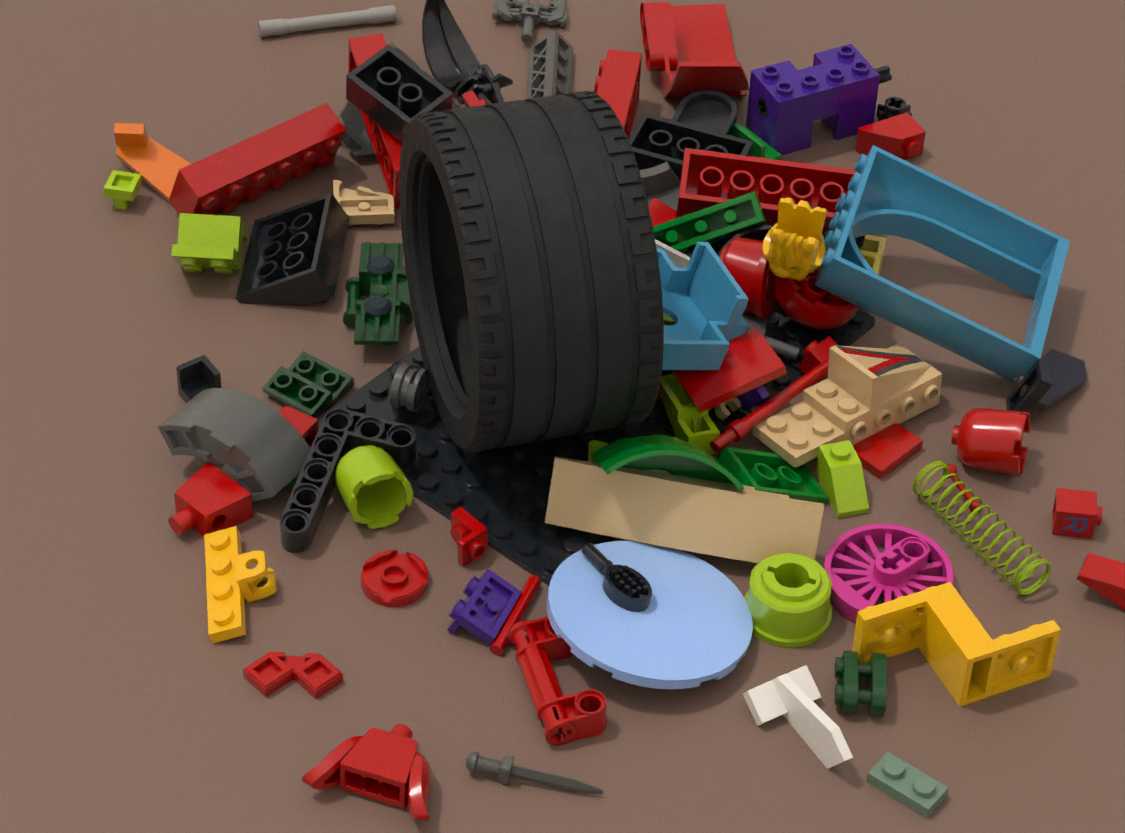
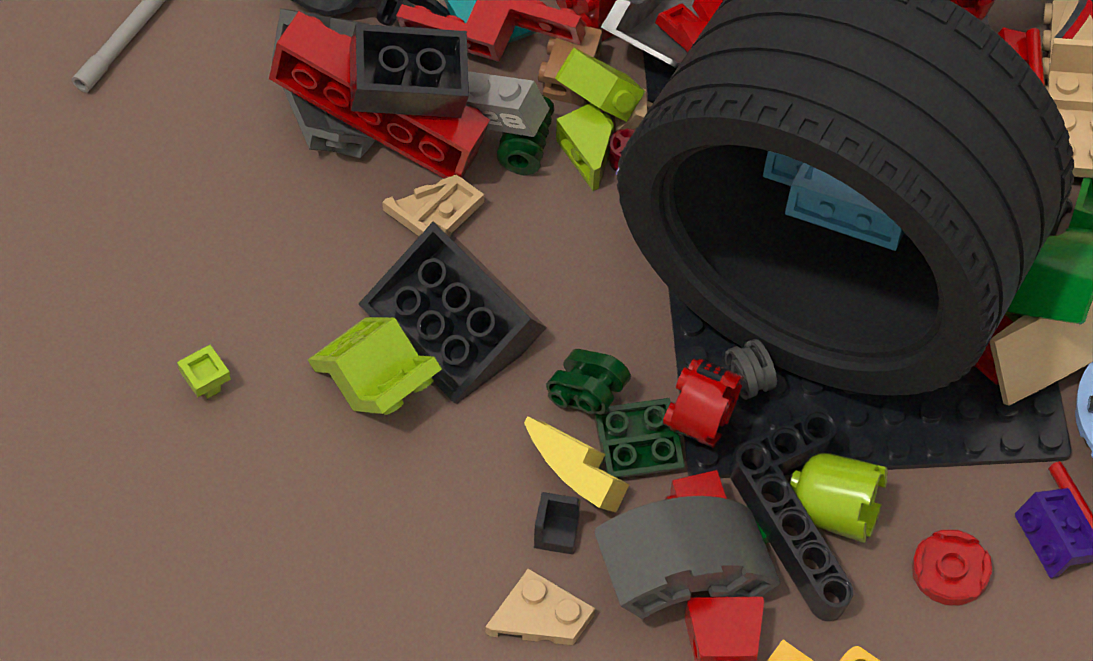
camera: 45 degrees left, 15 degrees up
(133, 421) = (541, 612): none -> tan wing
(147, 157) = (203, 320): orange piece -> none
(251, 362) = (577, 465): none -> light yellow slope
(259, 164) = (313, 246): red brick -> none
(302, 333) = (588, 381): none -> dark green brick
(354, 377) = (704, 401): none -> red brick
(381, 279) = (595, 283): dark green piece -> none
(469, 535) = (963, 469): red bracket -> none

